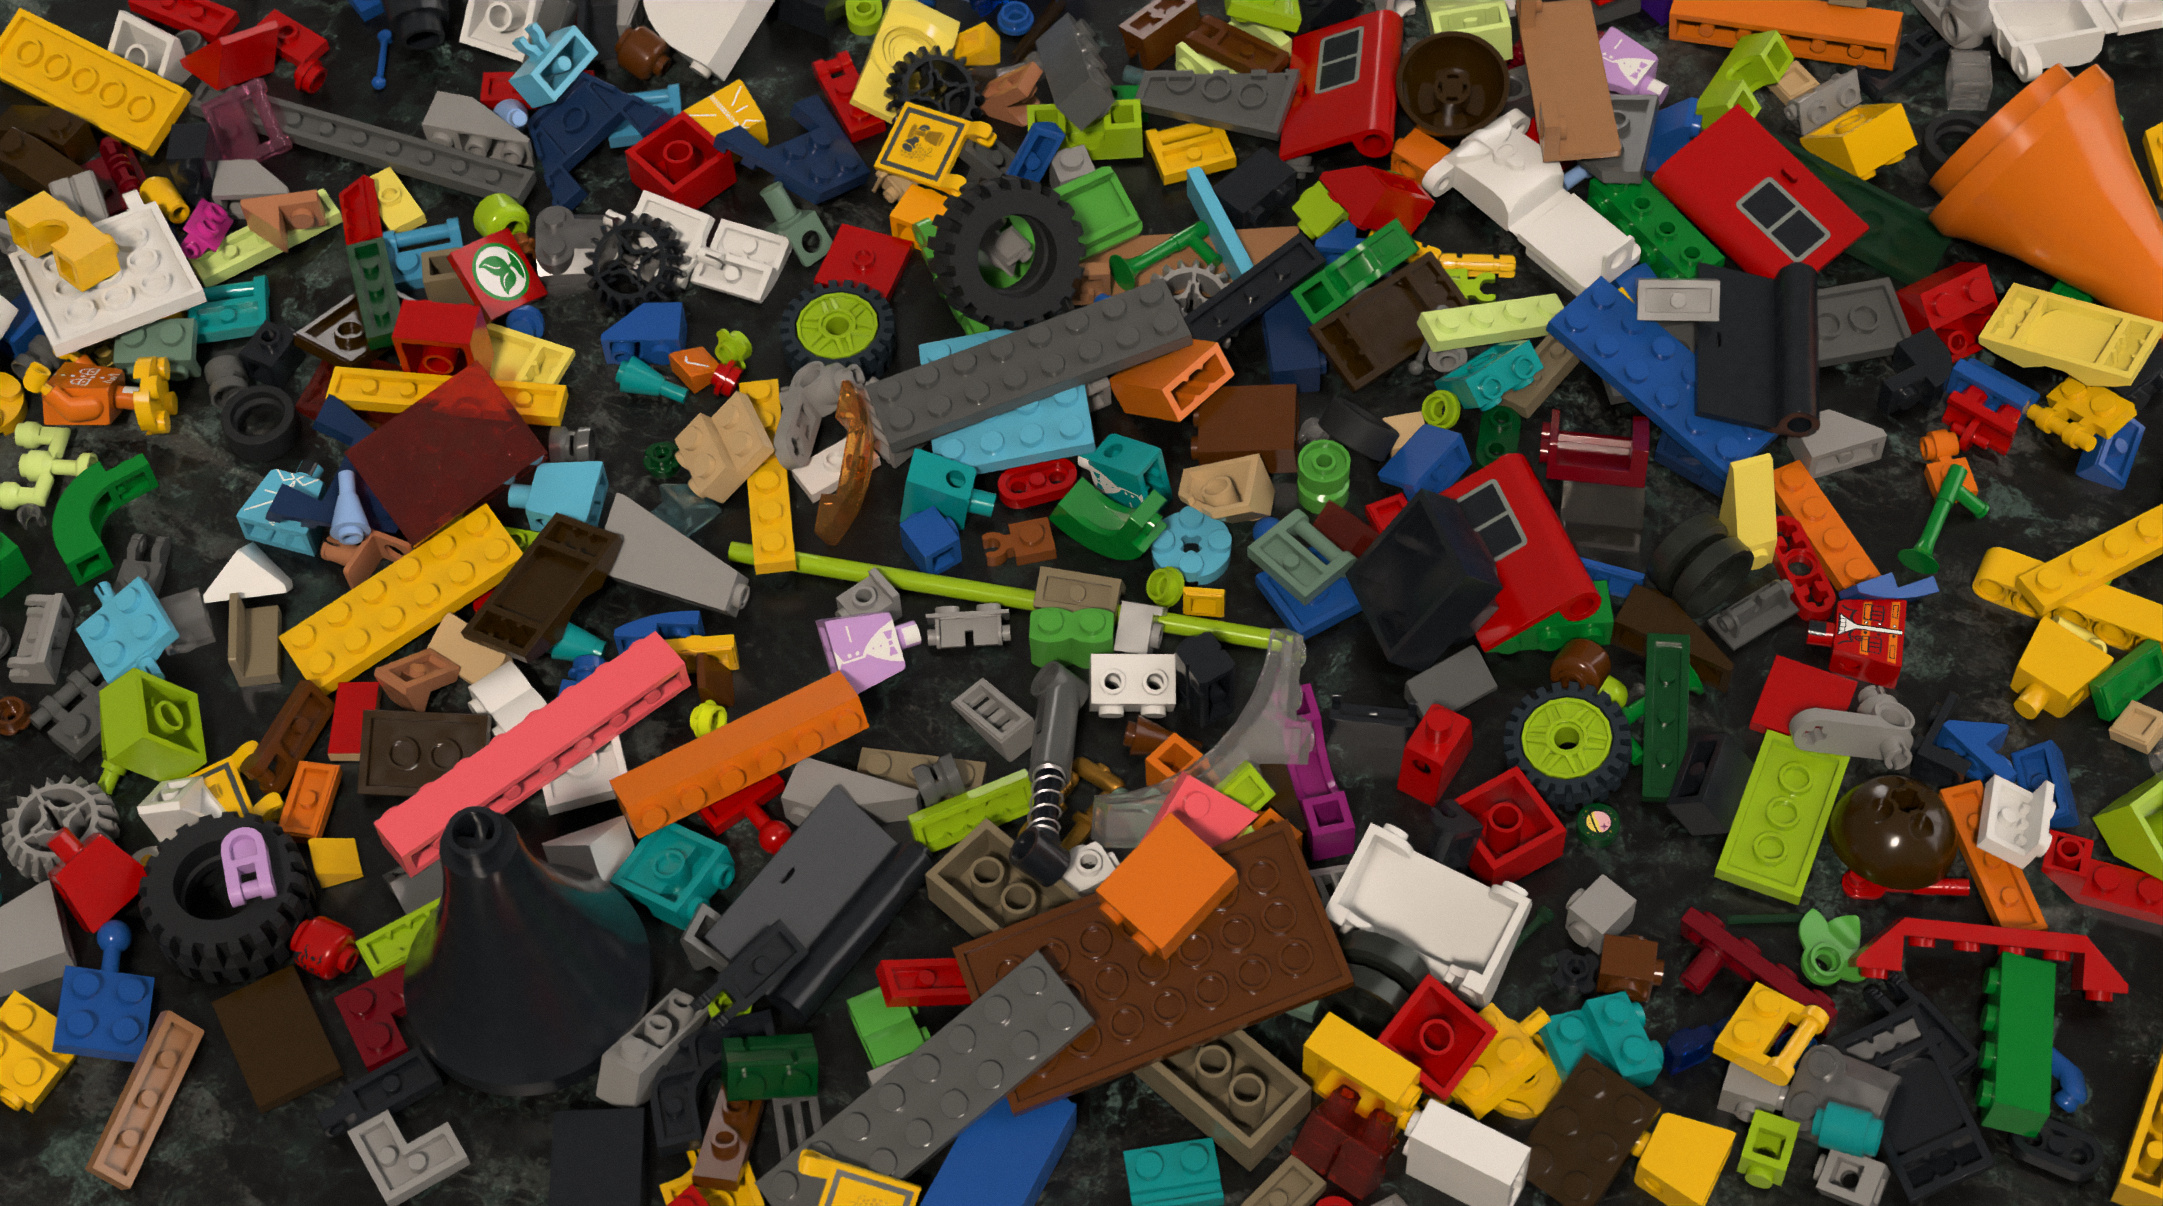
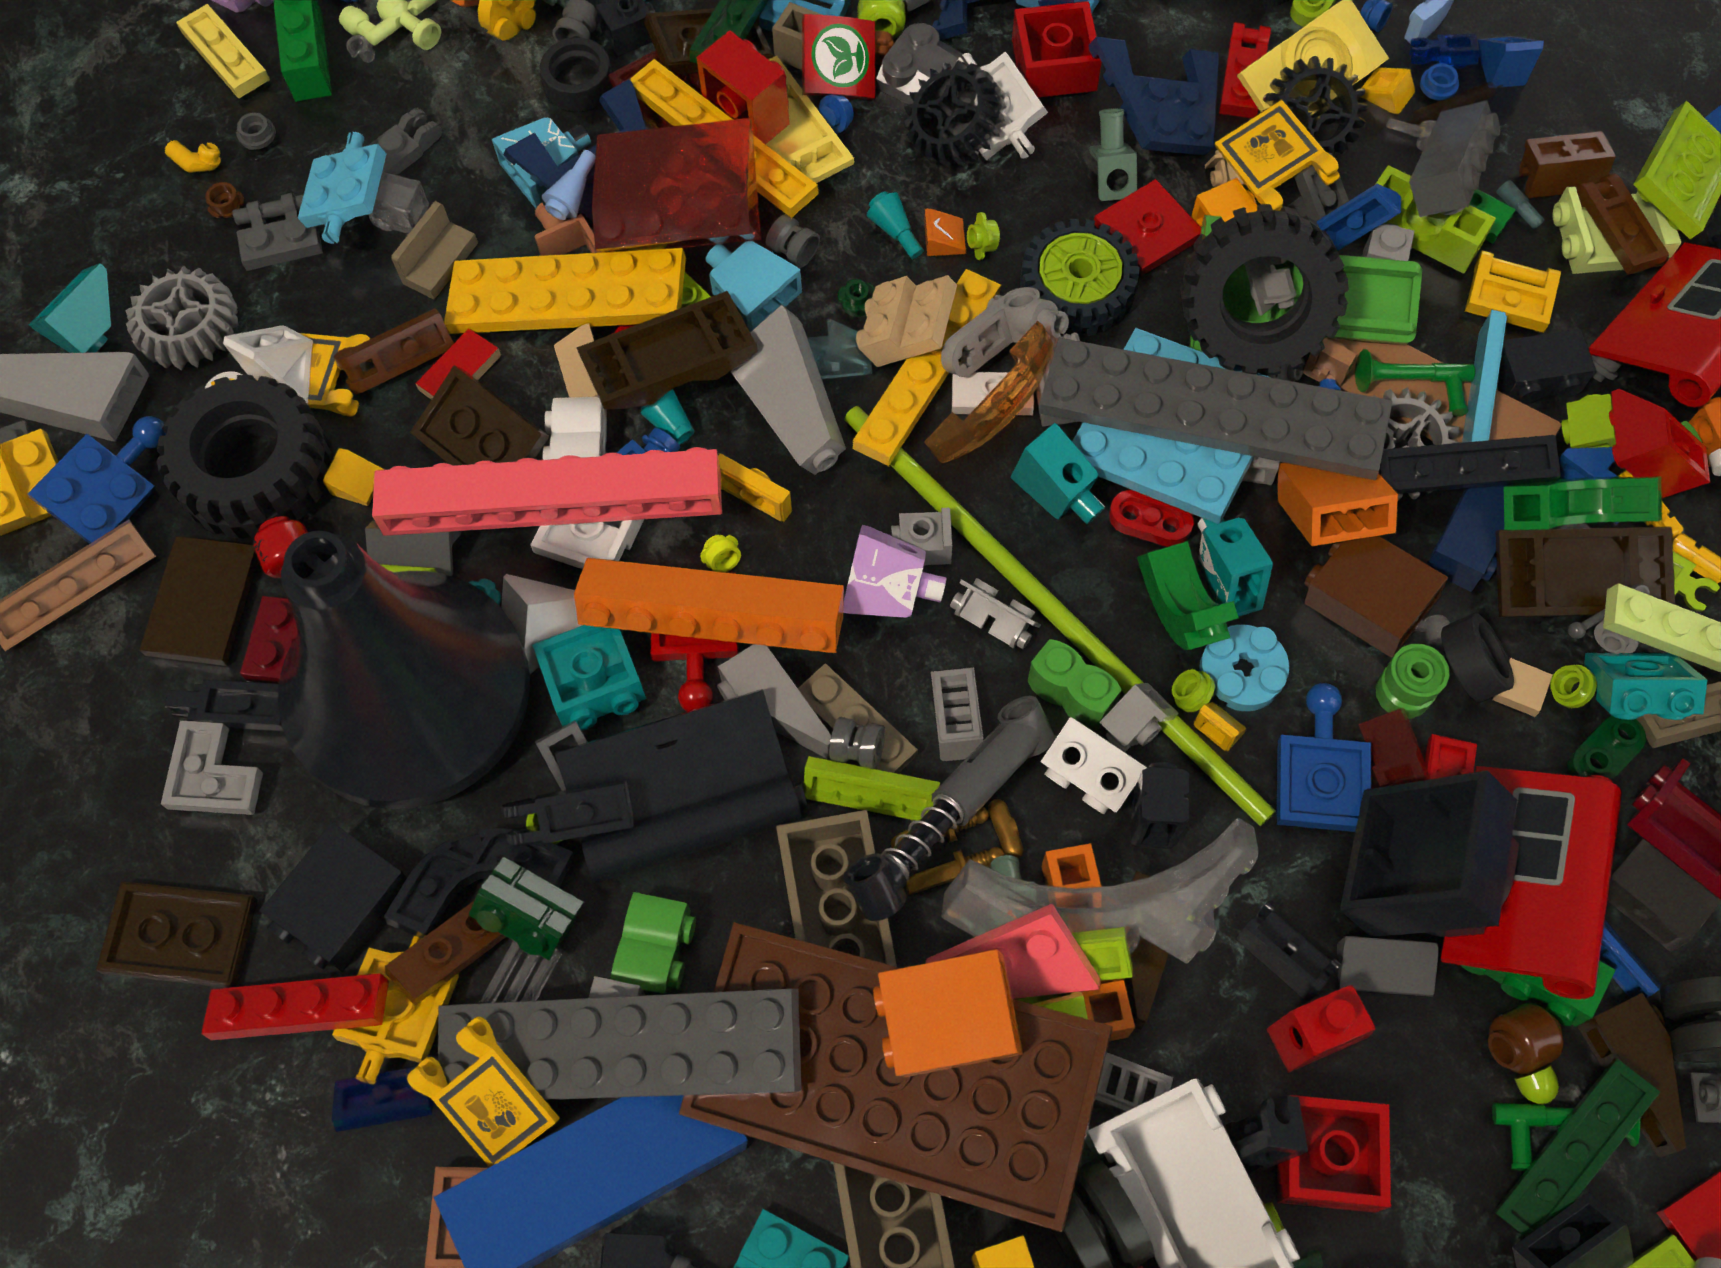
camera: 35 degrees right, 10 degrees up
(42, 640) = (293, 155): light grey hinge -> none
(87, 506) = (396, 67): green arch -> none
(93, 877) = (162, 371): red torso -> none
(149, 729) = (295, 276): lime piece -> none
(244, 853) = (256, 429): lavender plate -> none
(250, 575) = (470, 194): white slope -> none
(310, 800) = (371, 416): orange plate -> none
(414, 677) = (523, 362): nougat slope -> none
(634, 1060) = (431, 820): light grey slope -> none
(648, 333) = (923, 180): blue slope -> none
(668, 625) = (740, 448): blue slope -> none
(714, 681) = (750, 521): reddish brown slope -> none
(726, 378) = (958, 258): red plate -> none
(729, 109) = (1131, 22): yellow torso -> none
(750, 262) = (1054, 169): white slope -> none
(922, 982) = (698, 922): red plate -> none
(931, 541) = (1020, 513): blue brick -> none
(1011, 93) = (1386, 147): nougat slope -> none
(1027, 542) = (1102, 568): dark orange plate -> none
(1077, 590) = (1108, 646): dark tan panel -> none
(1089, 868) = (920, 921): white brick -> none
(1146, 736) = (1074, 826): reddish brown cone -> none
(1229, 489) = (1313, 638): tan slope -> none
(1234, 102) = (1574, 263): dark grey wing -> none
(1294, 564) = (1321, 751): sand green plate -> none
(1321, 802) = (1184, 988): magenta arch -> none
(1428, 461) = (1520, 731): blue panel -> none
(1574, 717) = (1491, 1089): wheel -> none
(1597, 825) = (1432, 1207): dark green tile -> none

